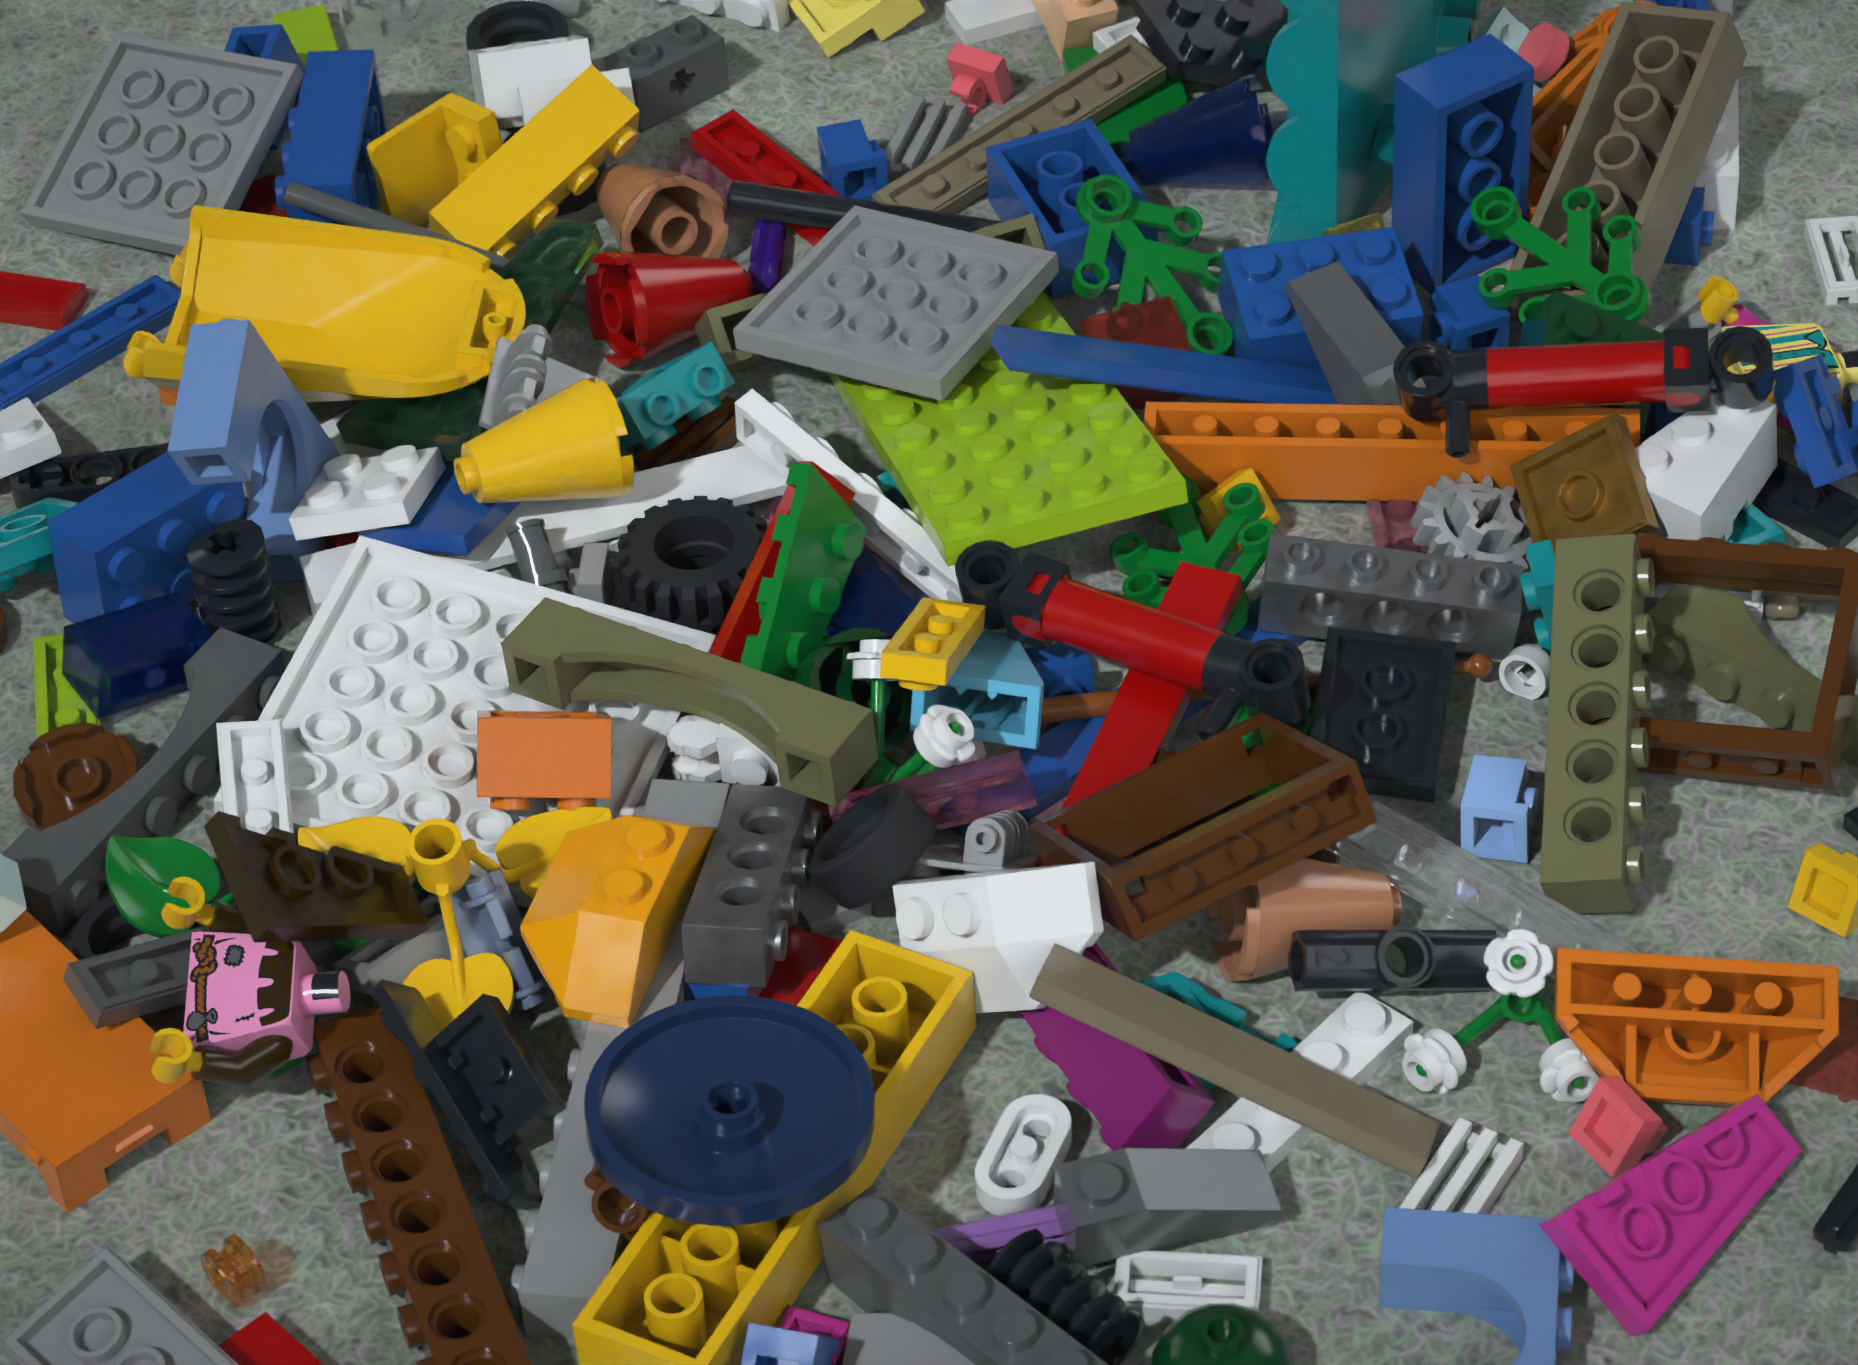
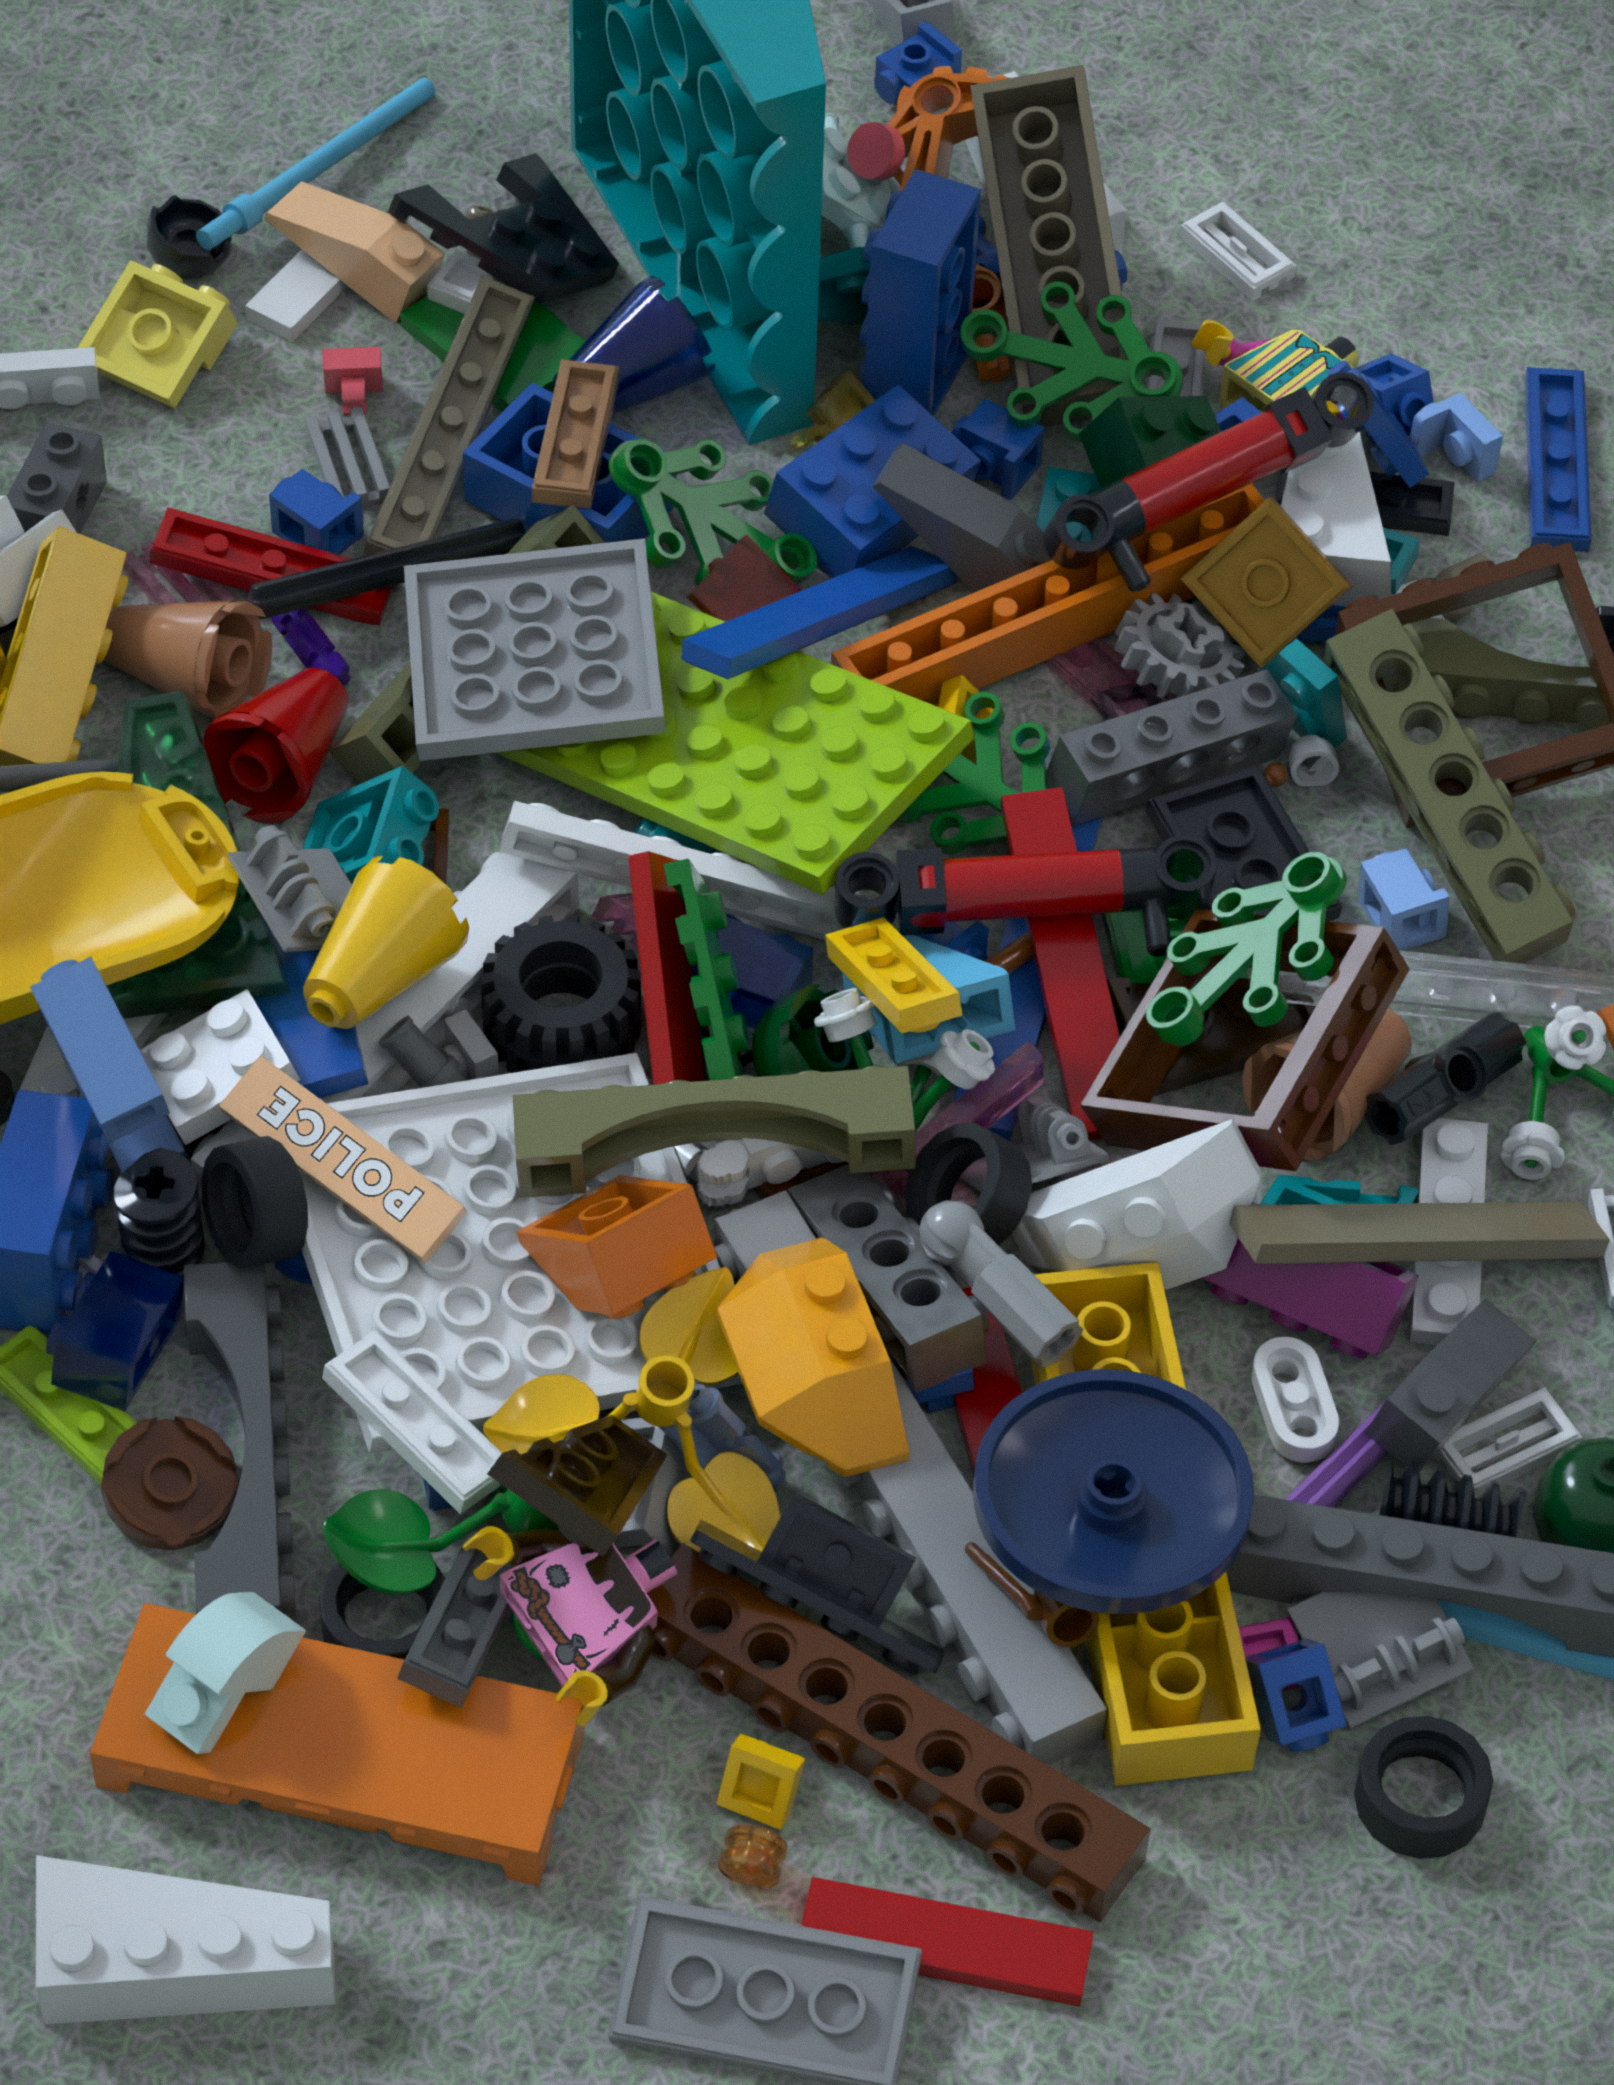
camera: 40 degrees left, 10 degrees up
(289, 592) = (254, 1202): none -> black tyre
(296, 1217) = (760, 1781): none -> yellow tile
(377, 589) = (344, 1159): none -> light nougat tile
(805, 917) = (1001, 1282): none -> light grey piece
(1101, 149) = (575, 434): none -> medium nougat tile
(1235, 746) = (1303, 894): none -> green plant

